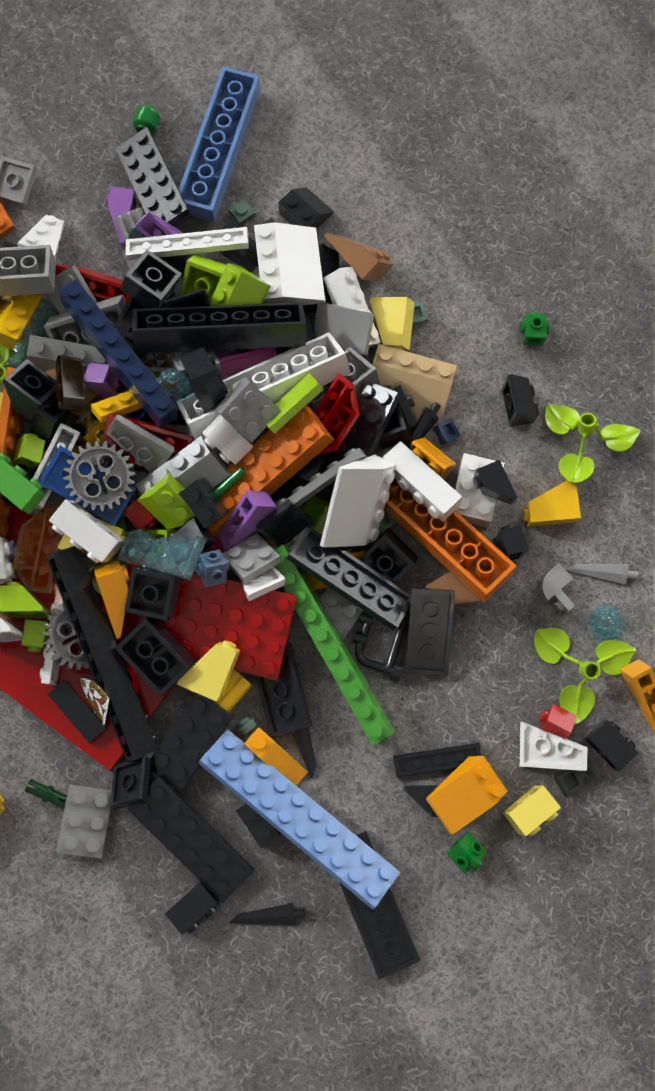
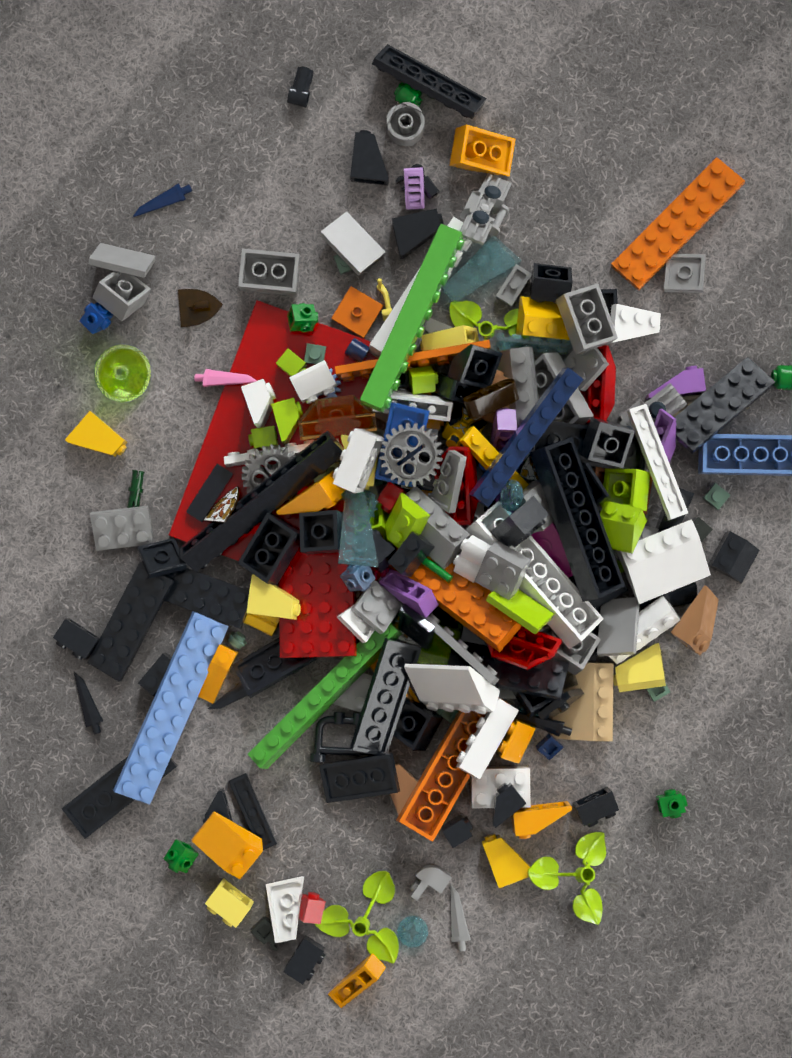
camera: 75 degrees right, 10 degrees up
(518, 458) = (534, 819): none -> light orange slope

